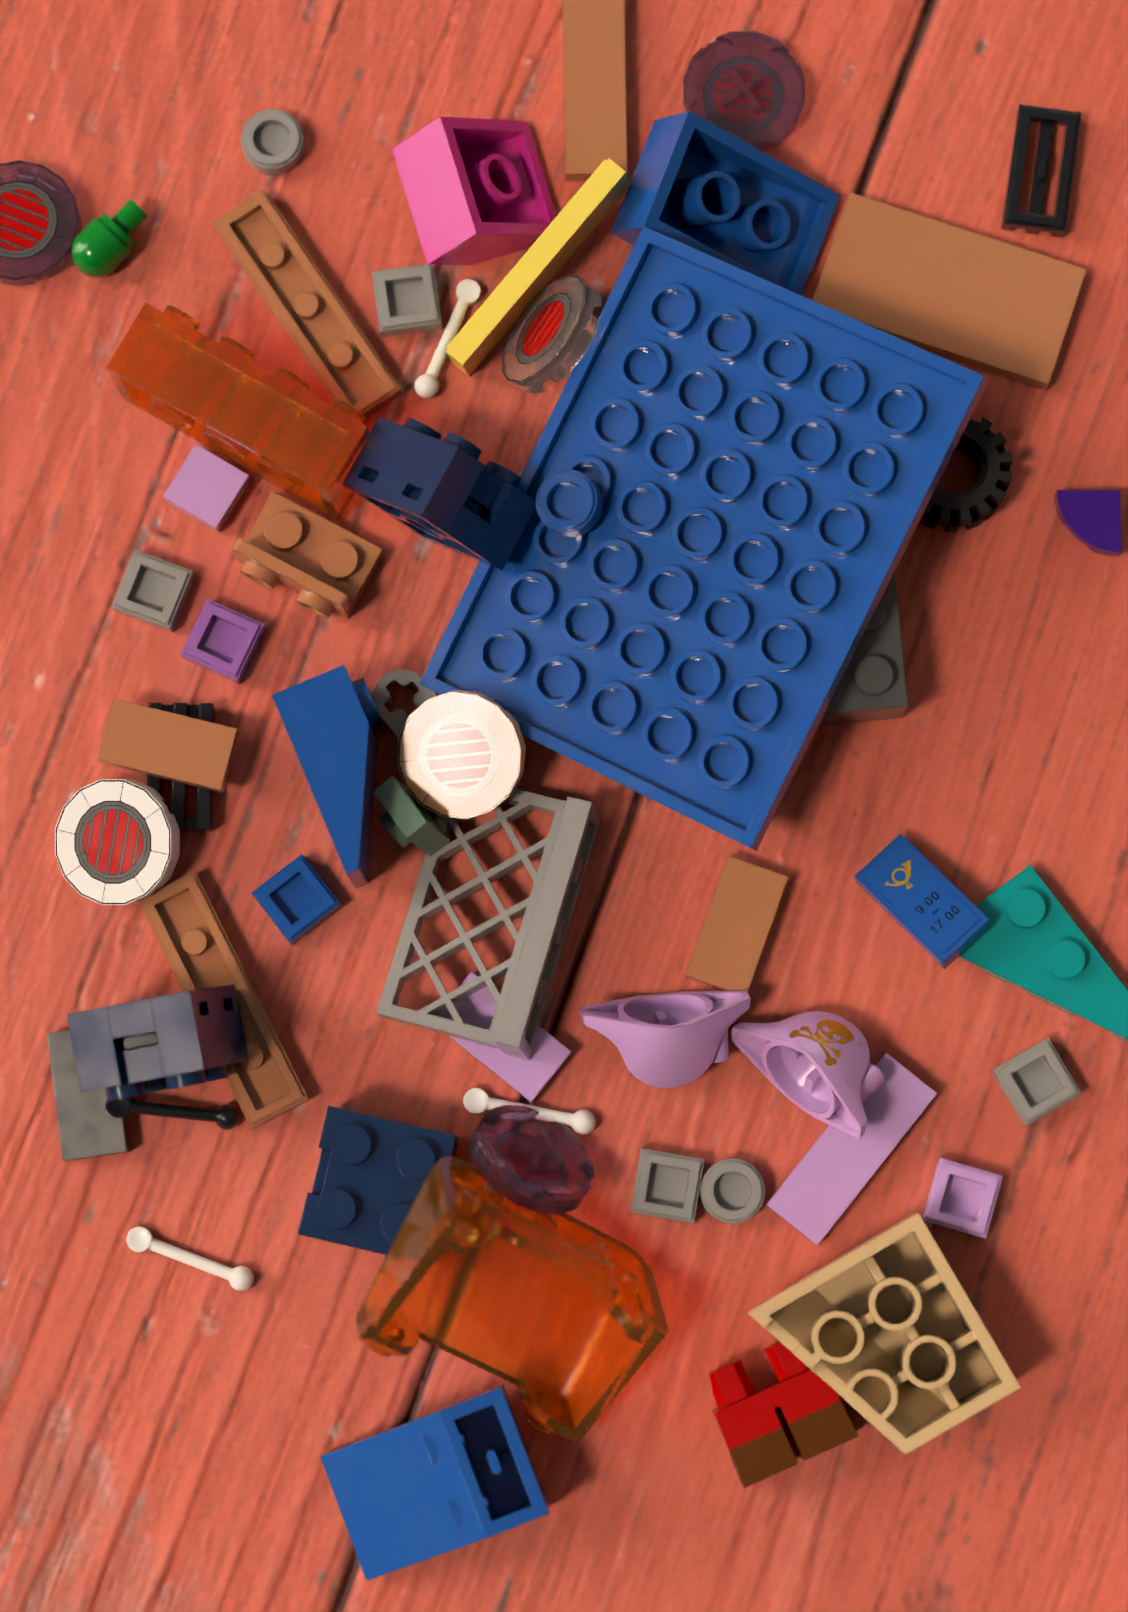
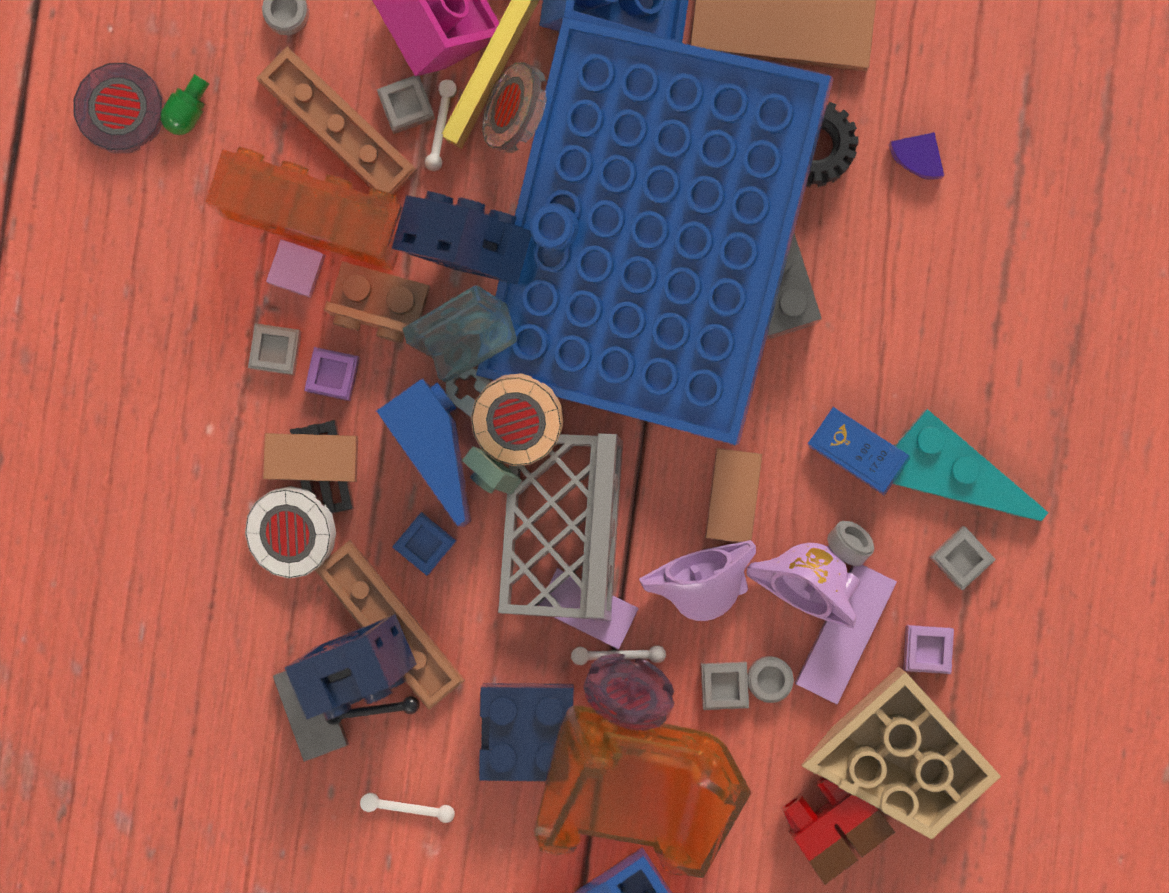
camera: 15 degrees left, 5 degrees up
(413, 618) = (462, 332): none -> clear light blue bracket
(884, 1025) = (850, 543): none -> light grey tile

